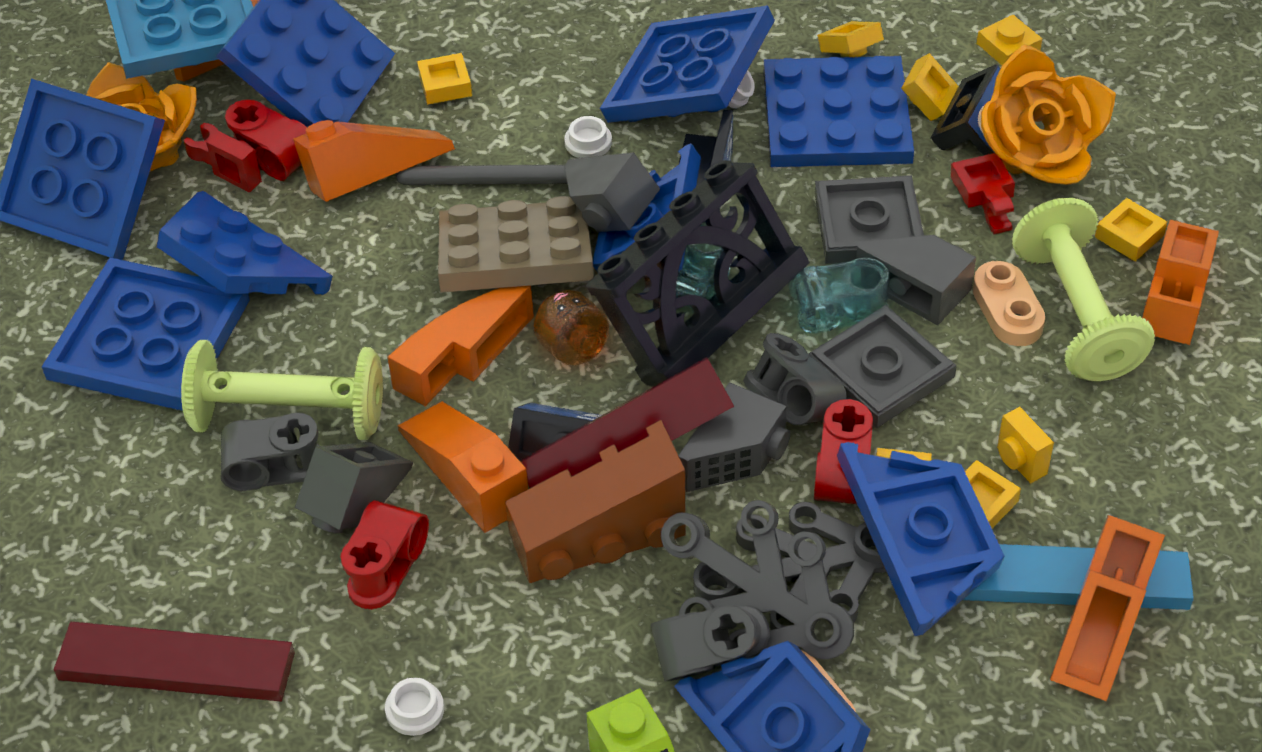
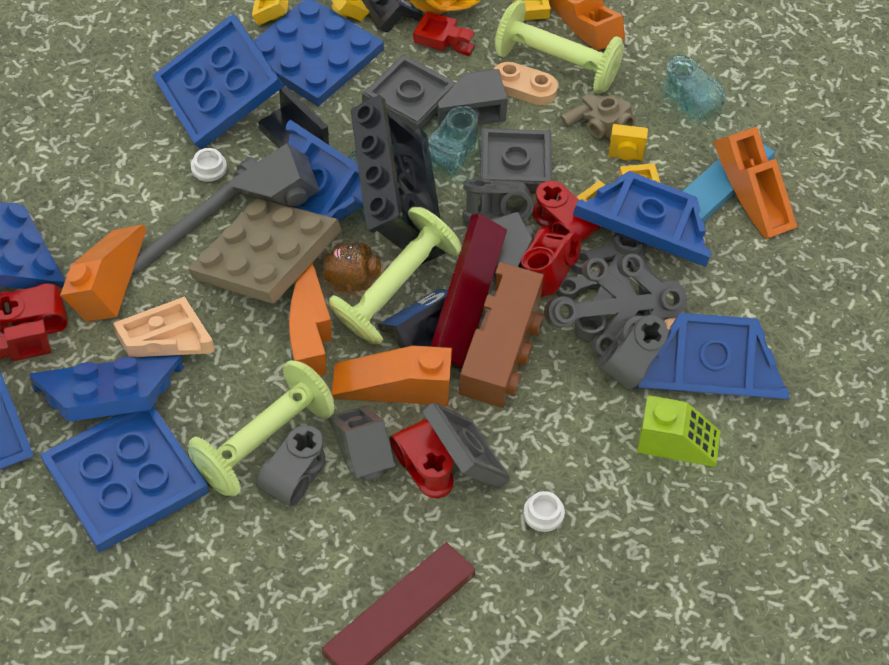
camera: 55 degrees left, 5 degrees up
(341, 245) = (164, 331): none -> light nougat wing
(415, 570) = (466, 445): none -> dark grey plate
(444, 78) = (79, 196): yellow plate -> none
(497, 372) = (433, 233): none -> yellowish green hose
(758, 474) = (552, 256): none -> red piece
(1040, 392) = (601, 113): none -> dark tan piece
(1188, 450) = (692, 90): none -> clear light blue piece

